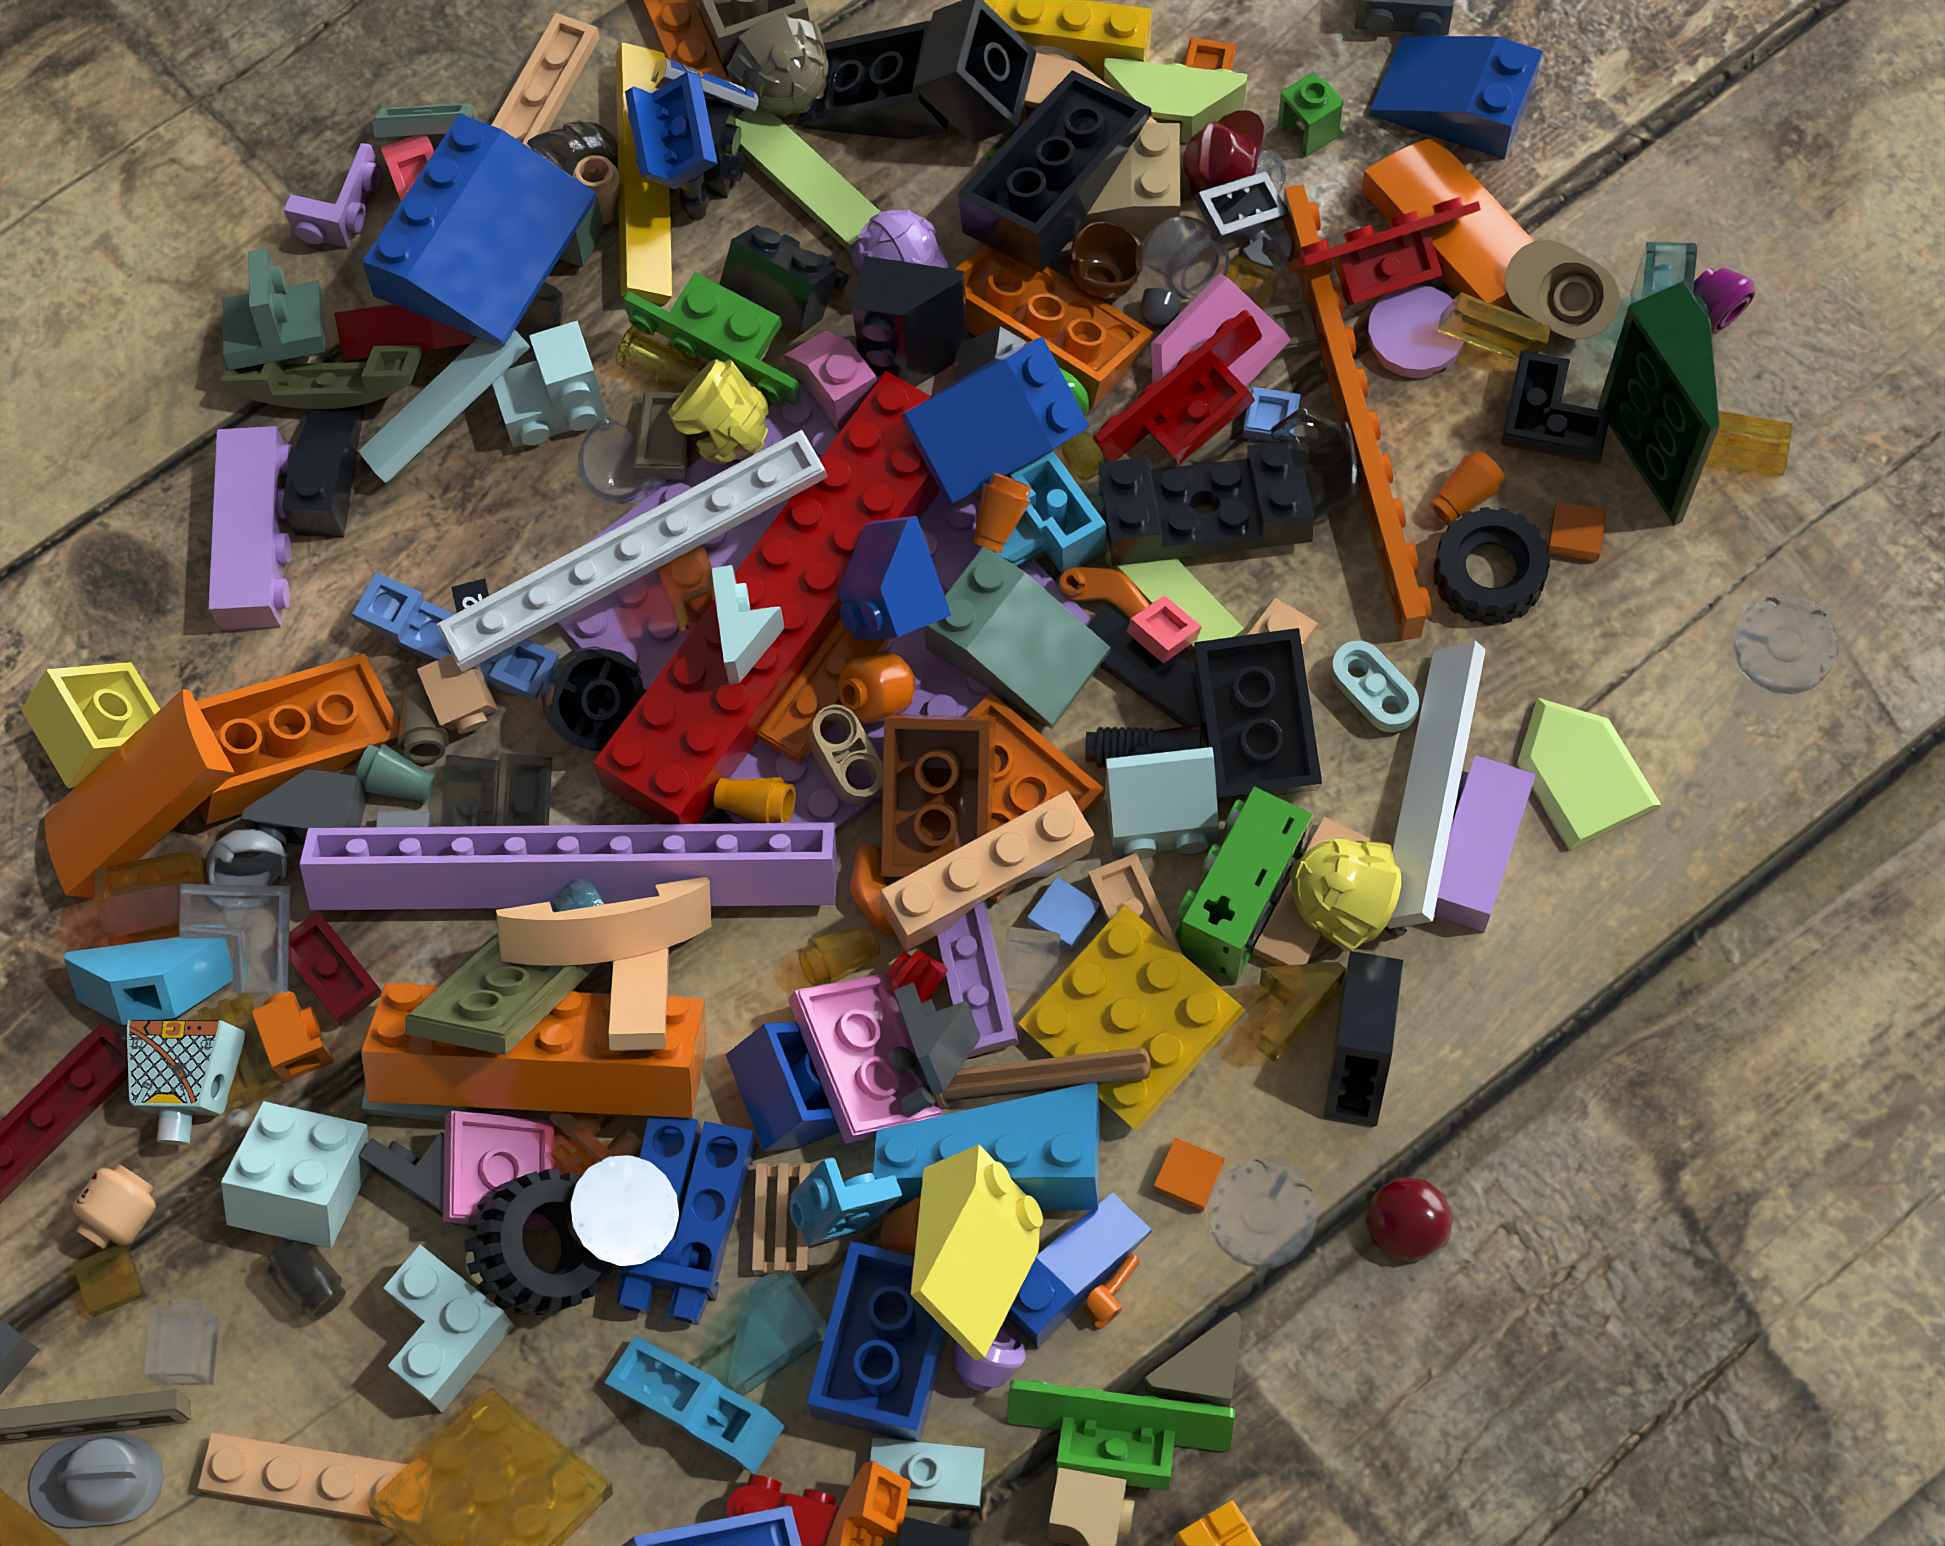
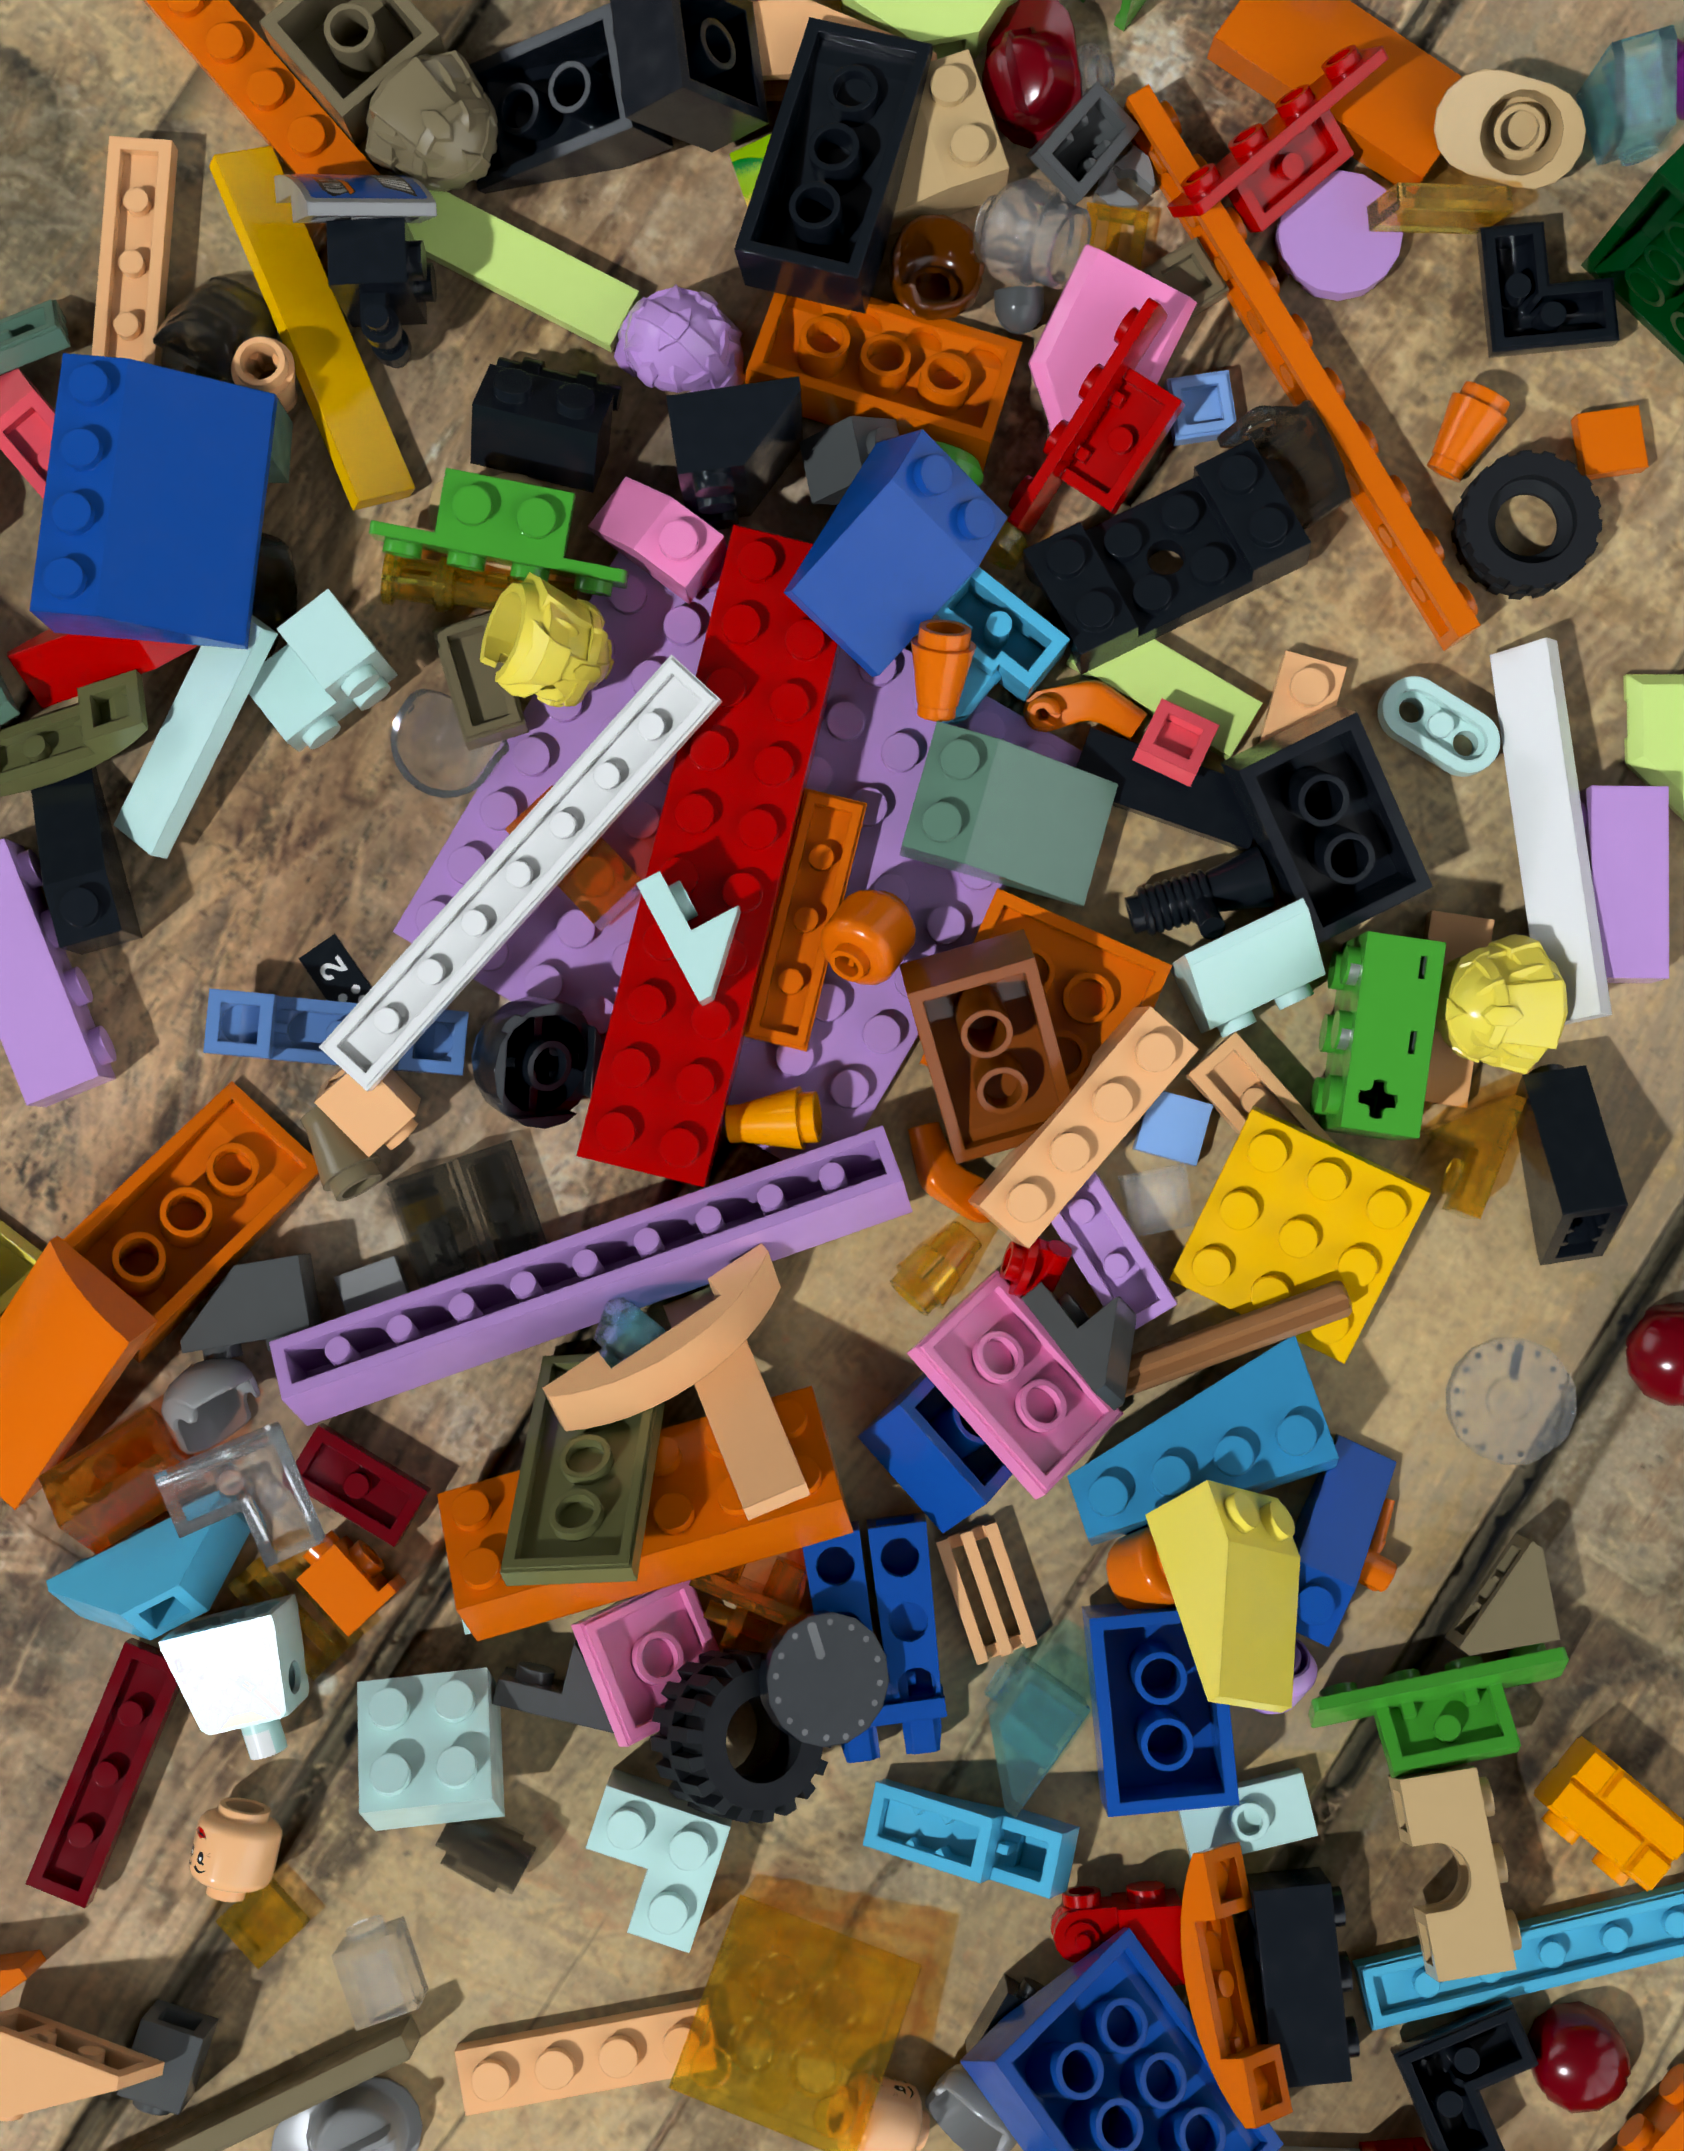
camera: 25 degrees left, 20 degrees up
(393, 775) = (334, 1226): sand green cone -> none
(671, 131) = (346, 288): blue bracket -> none
(835, 1209) = (1060, 1578): medium azure bracket -> none
(854, 751) = (864, 1034): tan beam -> none
(891, 582) = (853, 820): blue slope -> none
(904, 1060) = (1061, 1376): dark grey piece -> none
(1188, 1174) = (1416, 1385): orange tile -> none

